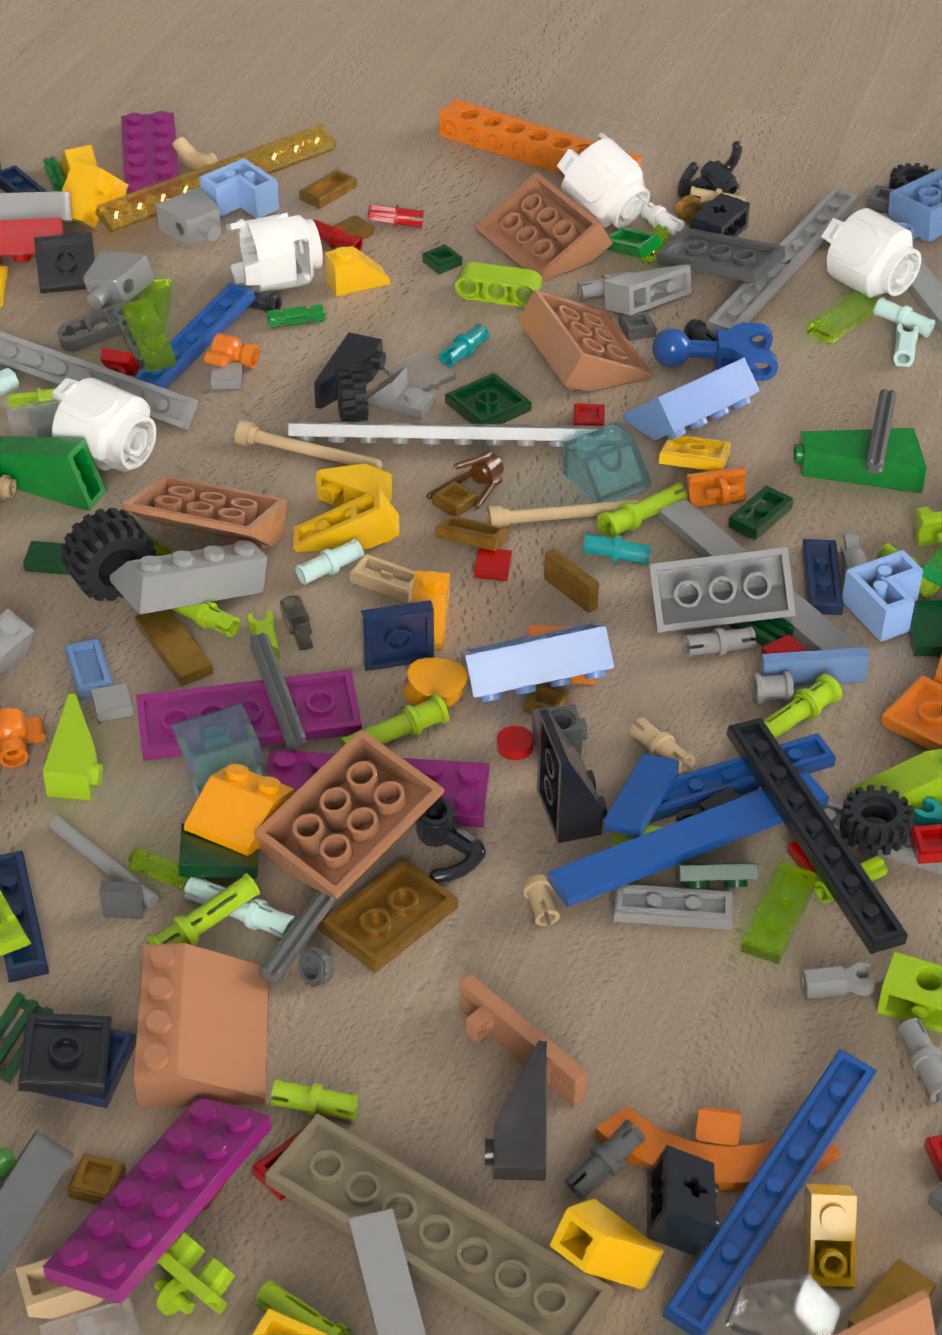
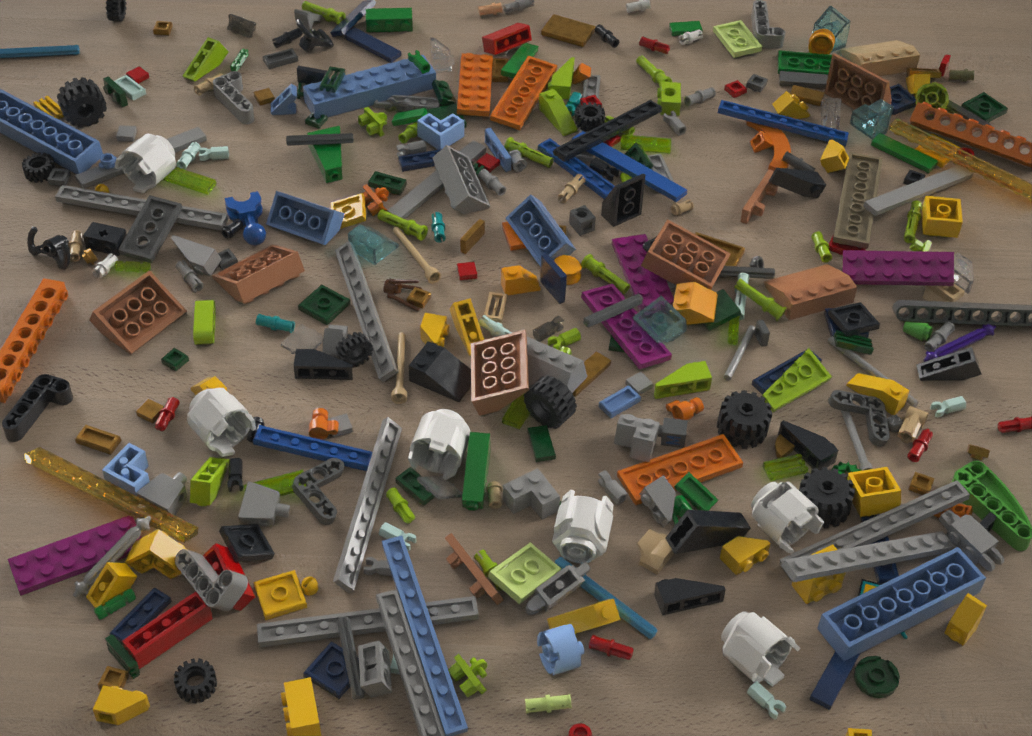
camera: 110 degrees left, 5 degrees up
(95, 1178) = (891, 297): pearl gold tile -> none
(119, 361) = (352, 475): red tile -> none
(120, 170) = (112, 555): none -> light grey wheel
(148, 334) = (326, 462): clear neon green tile -> none
(191, 157) = (76, 524): tan arm -> none
(191, 249) = (207, 481): none -> lime slope
(194, 276) = (235, 473): none -> black bar
(275, 468) = (440, 372): none -> black slope
(295, 316) = (264, 410): green axle -> none
(395, 215) = (132, 389): axle -> none
(425, 149) = (33, 402): none -> black beam
(472, 533) = (449, 281): pearl gold tile -> none
(515, 742) = (591, 236): red tile -> none
(588, 414) = (324, 261): red tile -> none
(605, 182) = (92, 274): white piece -> none
(634, 242) = (143, 265): green tile -> none
(641, 795) = (603, 184): blue tile -> none
(681, 1201) = (807, 138): black brick -> none

